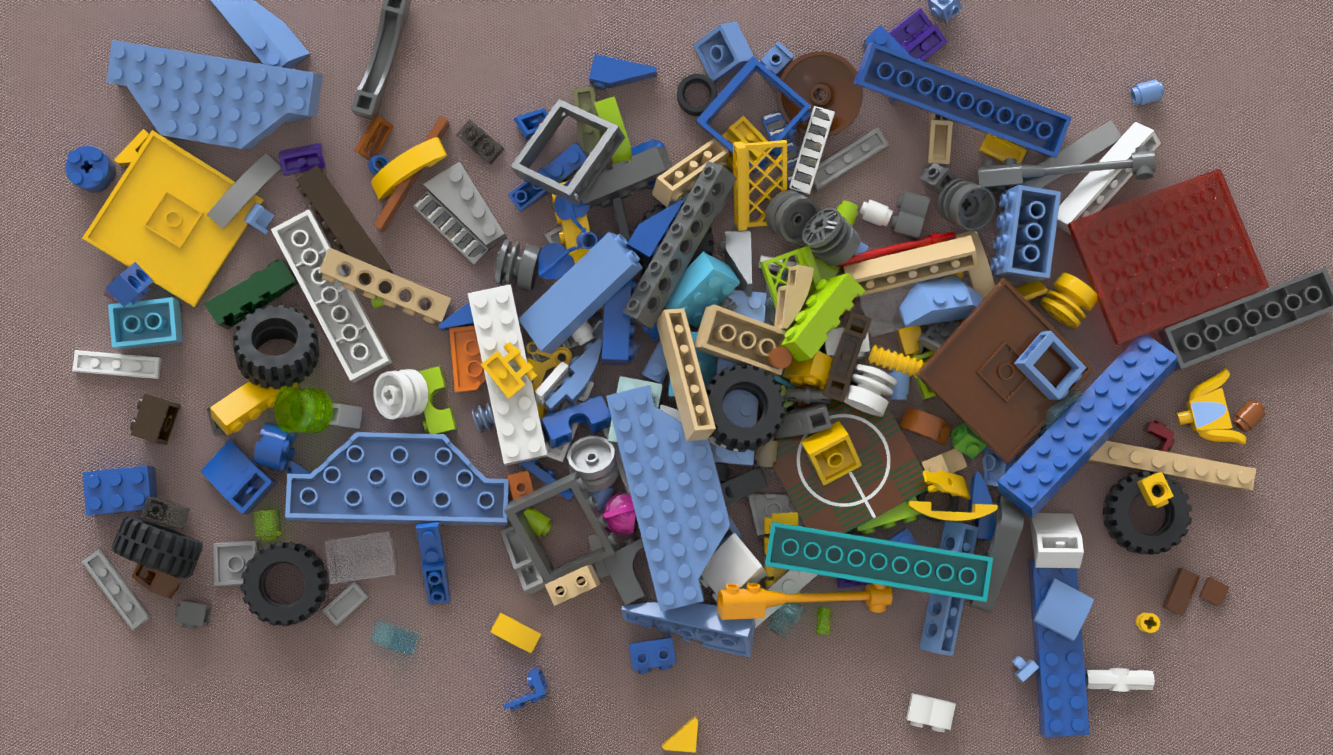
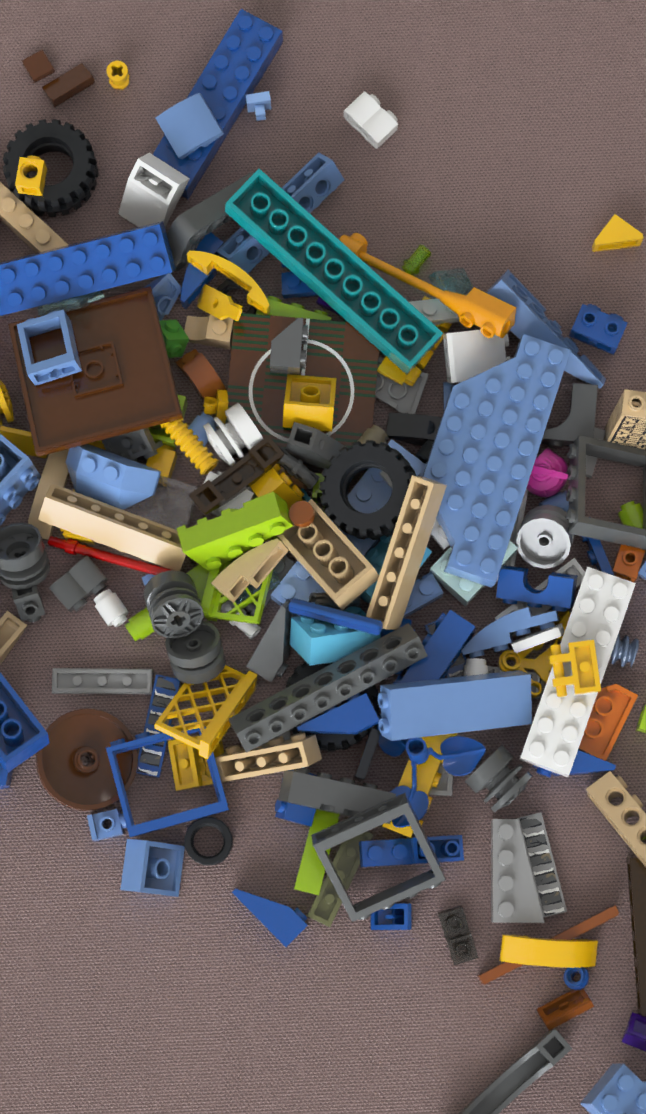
camera: 150 degrees left, 5 degrees down
(706, 298) = (336, 616): none -> blue axle
(812, 150) = (132, 708): tile -> none
(871, 477) = (287, 350): none -> dark grey slope
(898, 408) = (217, 405): none -> yellow tile
(1119, 679) = (178, 42): white piece -> none

